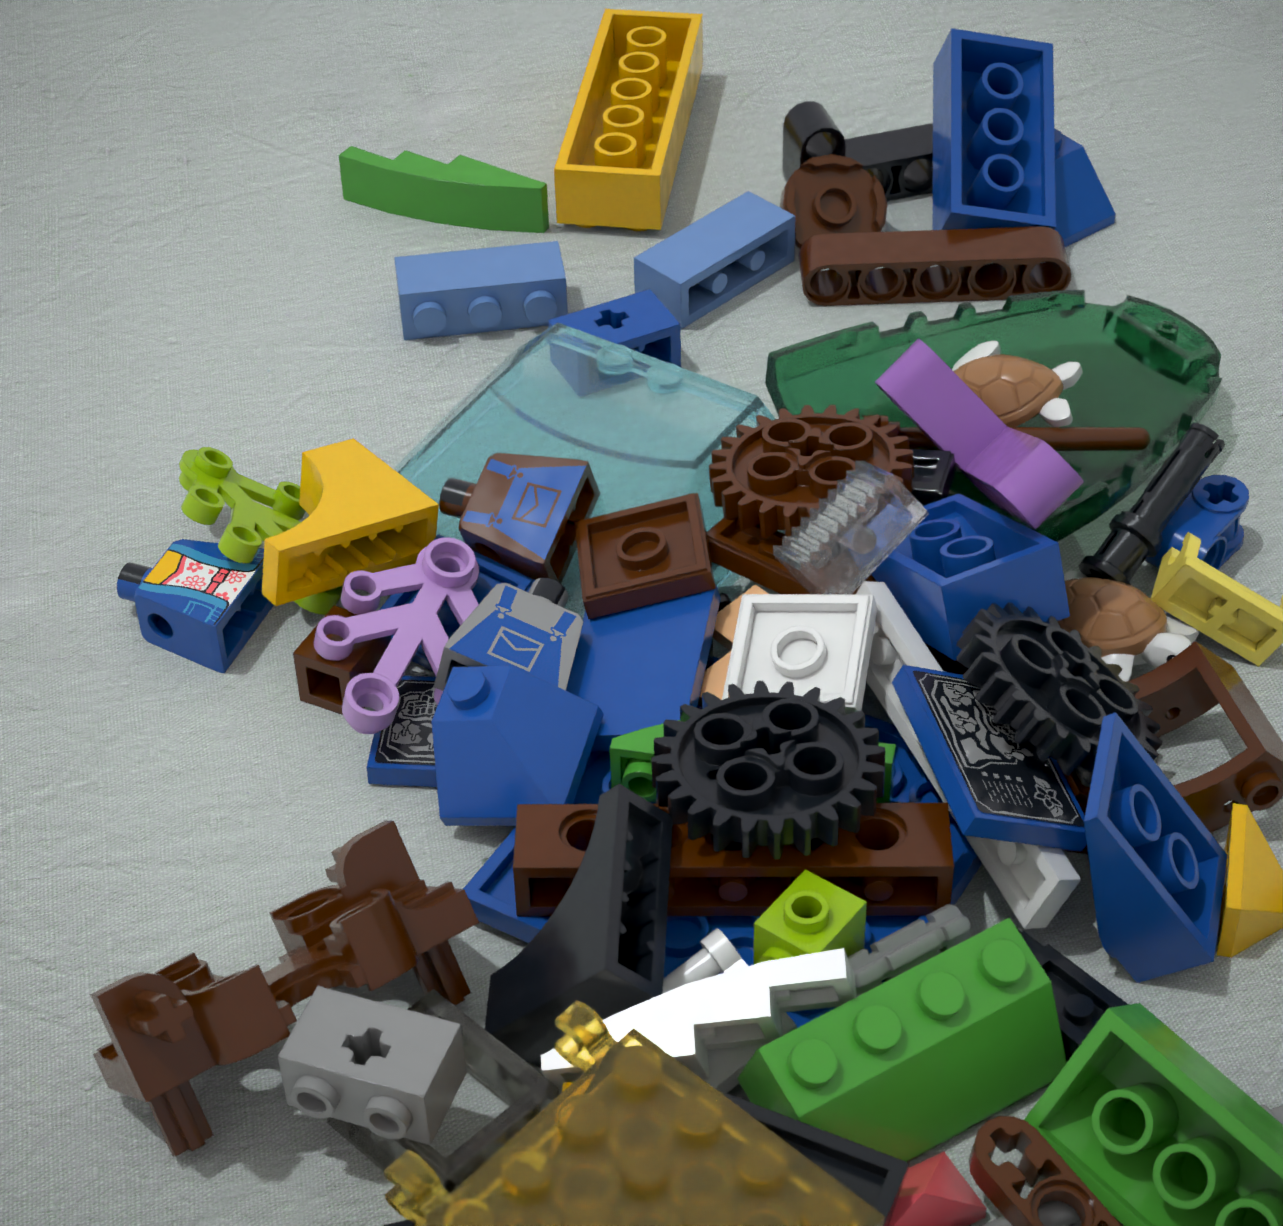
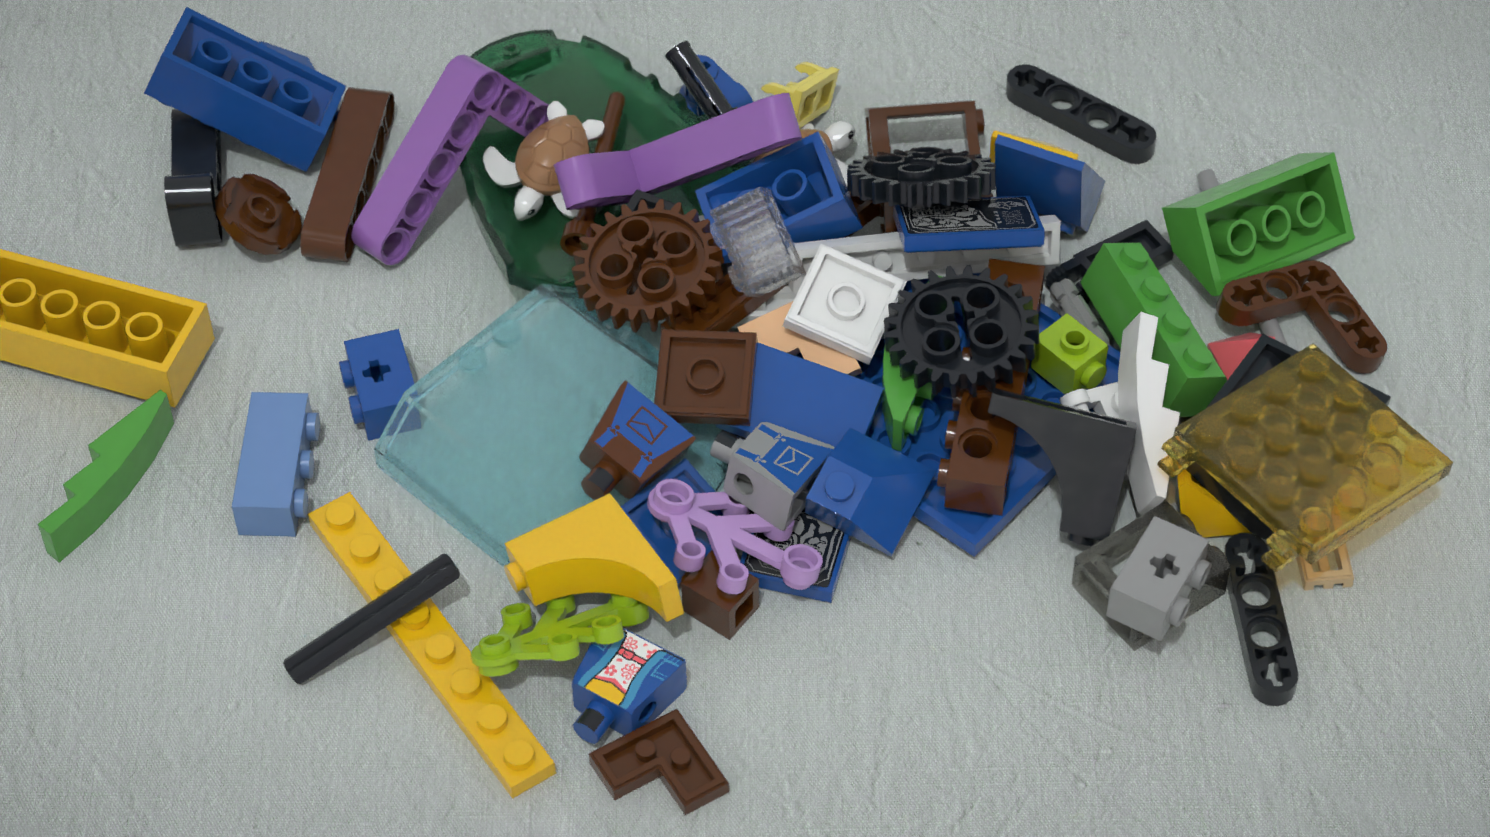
camera: 80 degrees left, 10 degrees up
(110, 666) = (663, 751): none -> reddish brown tile
(259, 452) = (435, 650): none -> yellow plate
(267, 387) = (371, 618): none -> black axle
(340, 935) = (1005, 581): reddish brown gear -> none
(717, 257) = (287, 304): medium blue brick -> none
(1003, 267) = (434, 151): none -> medium lavender beam

